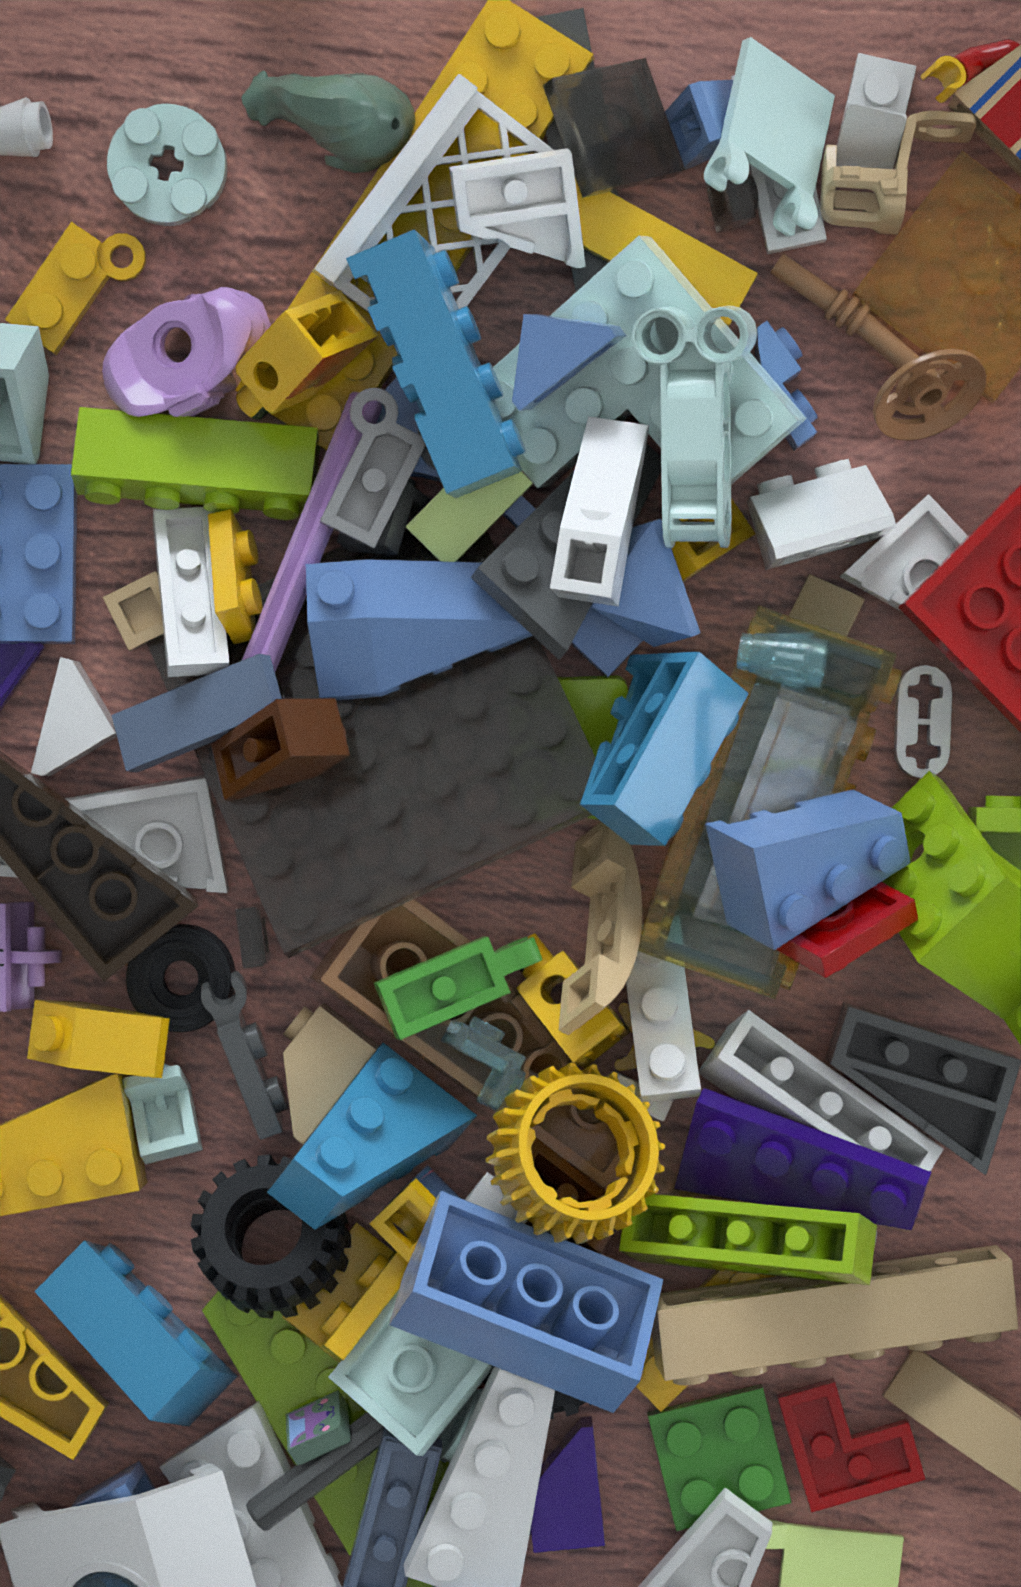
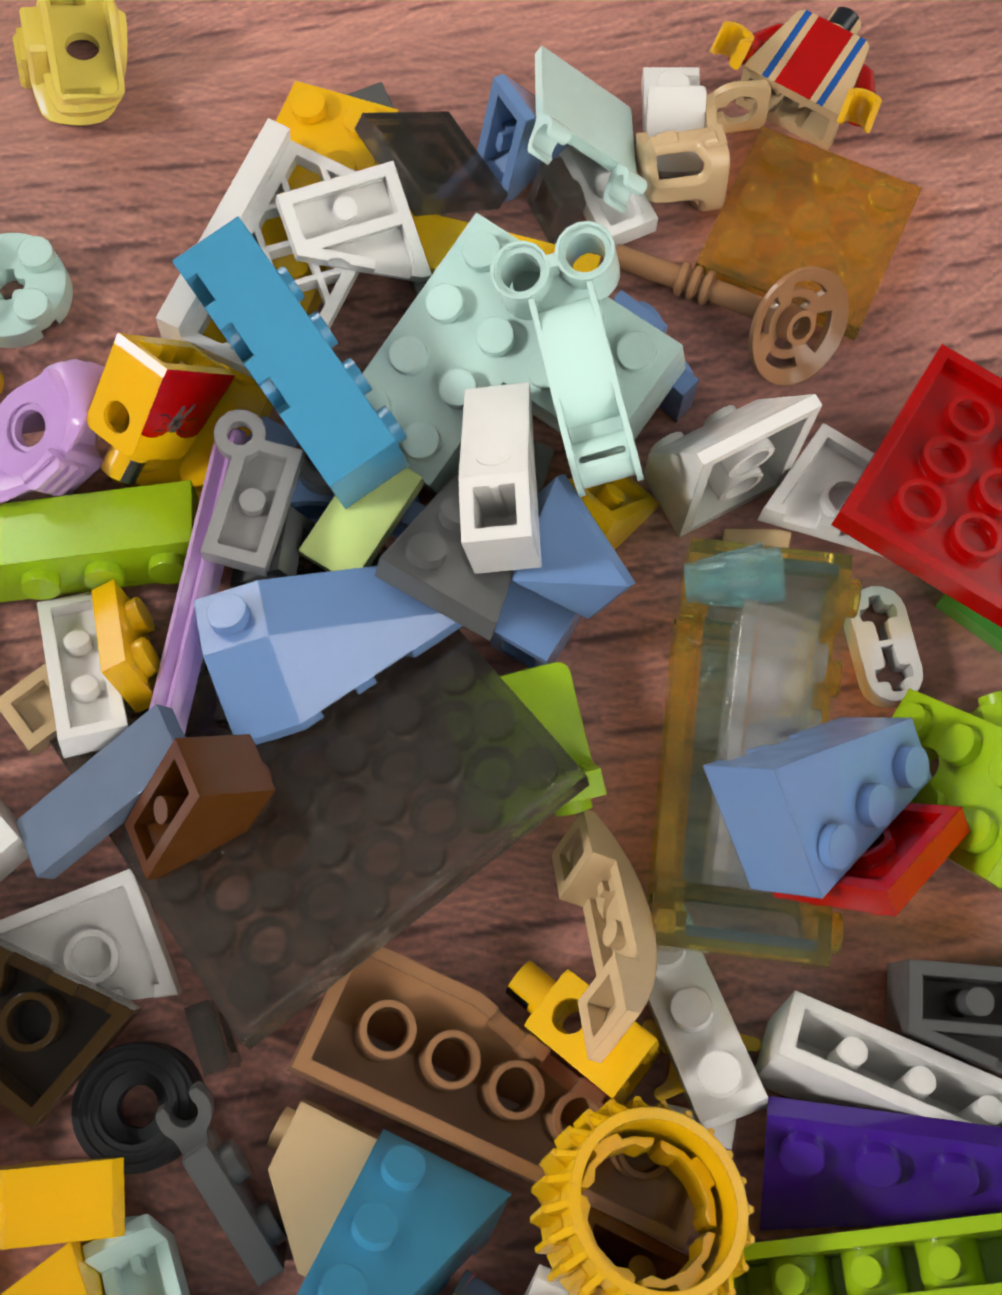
camera: 10 degrees left, 15 degrees down
(347, 114) = (162, 191): sand green piece -> none
(452, 983) = (446, 1037): bright green plate -> none
(483, 1044) = (499, 1102): clear light blue bracket -> none
(554, 352) = (419, 327): medium blue slope -> none
(662, 744) = (624, 708): dark azure wedge -> none

